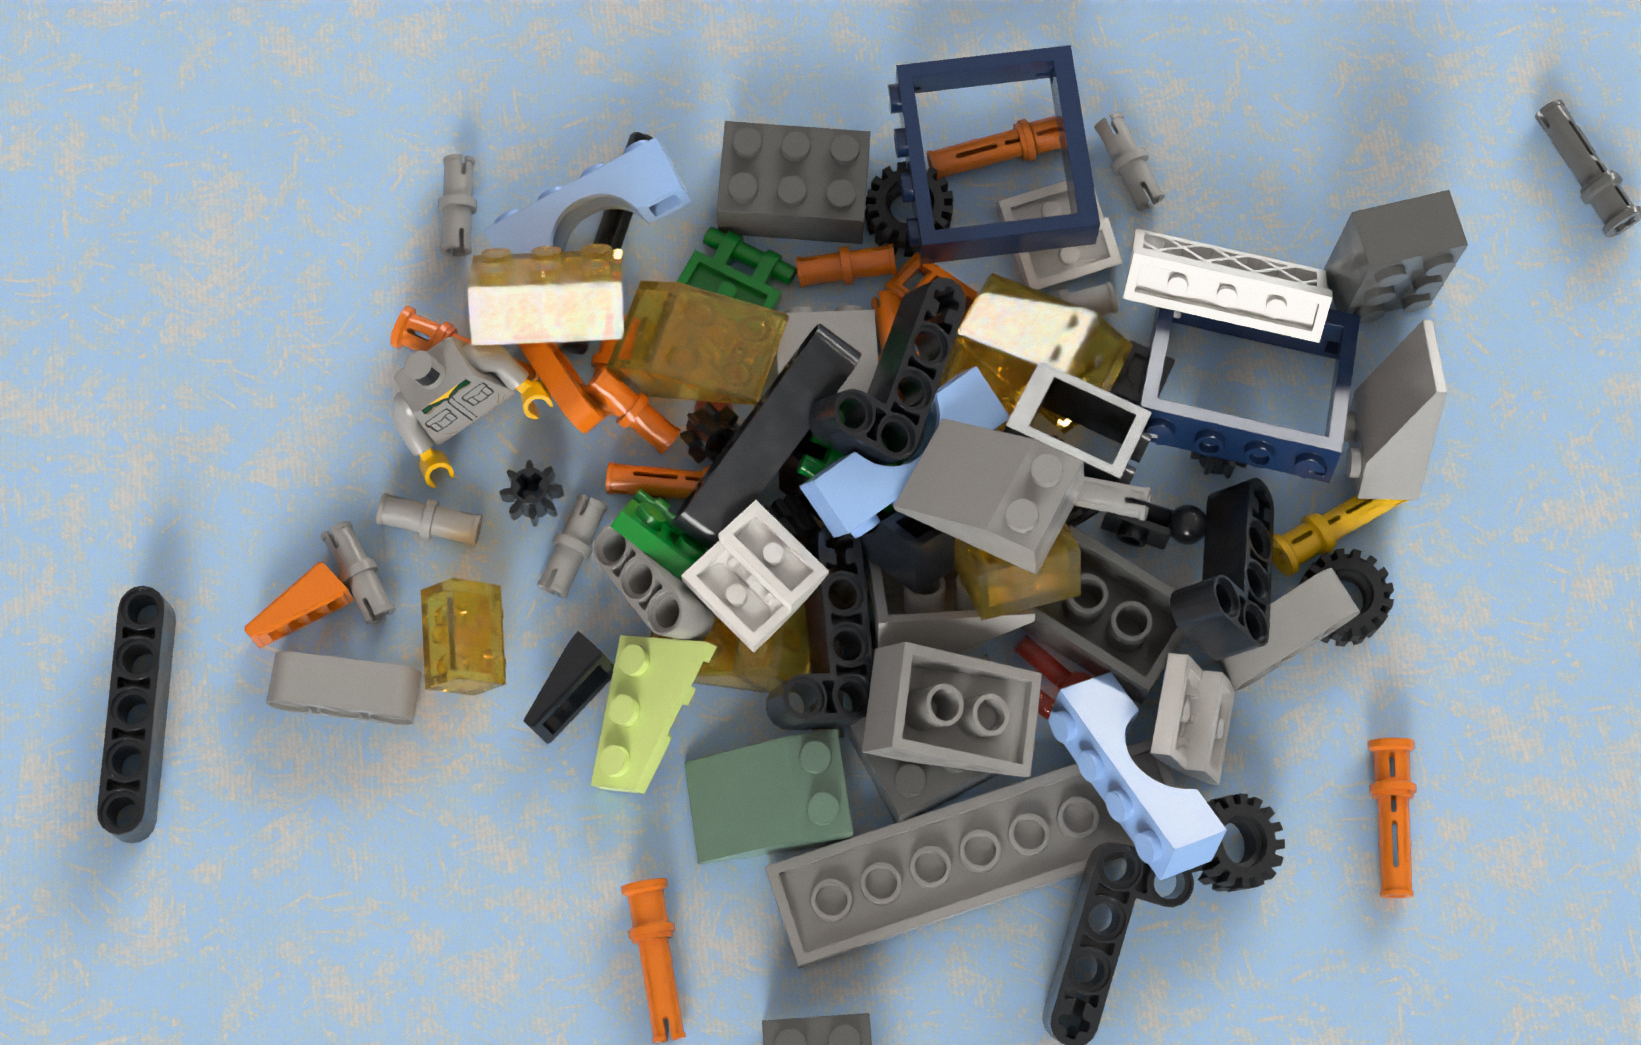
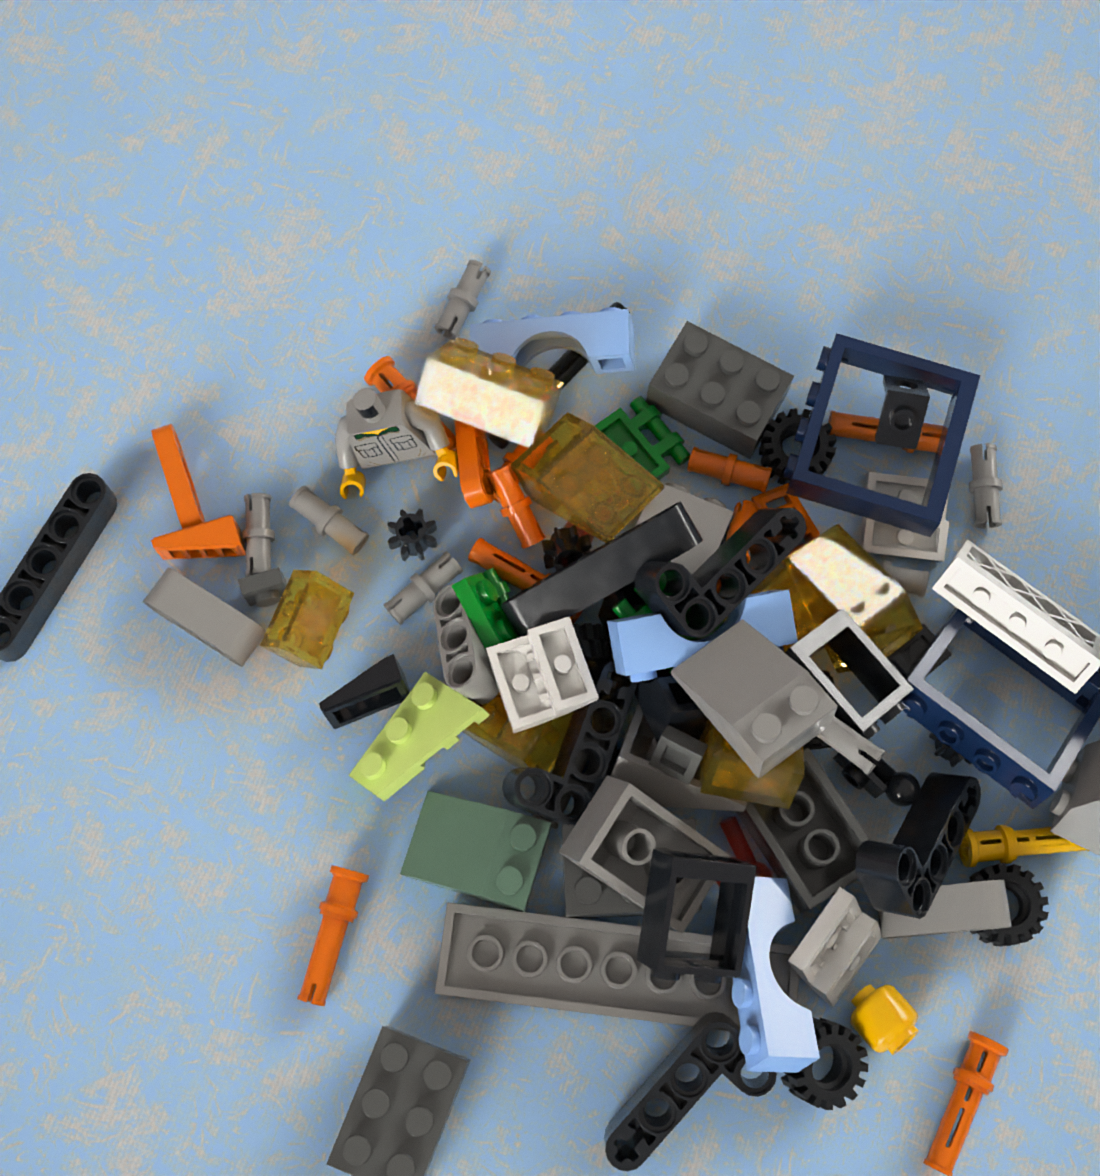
camera: 25 degrees right, 0 degrees up
(233, 547) = (177, 476): none -> orange beam
(395, 626) = (263, 588): none -> dark grey plate
(940, 591) = (678, 754): none -> dark grey plate
(1006, 122) = (902, 412): none -> black bracket
(1073, 740) = (730, 920): none -> black window
(1275, 769) = (883, 1018): none -> yellow head

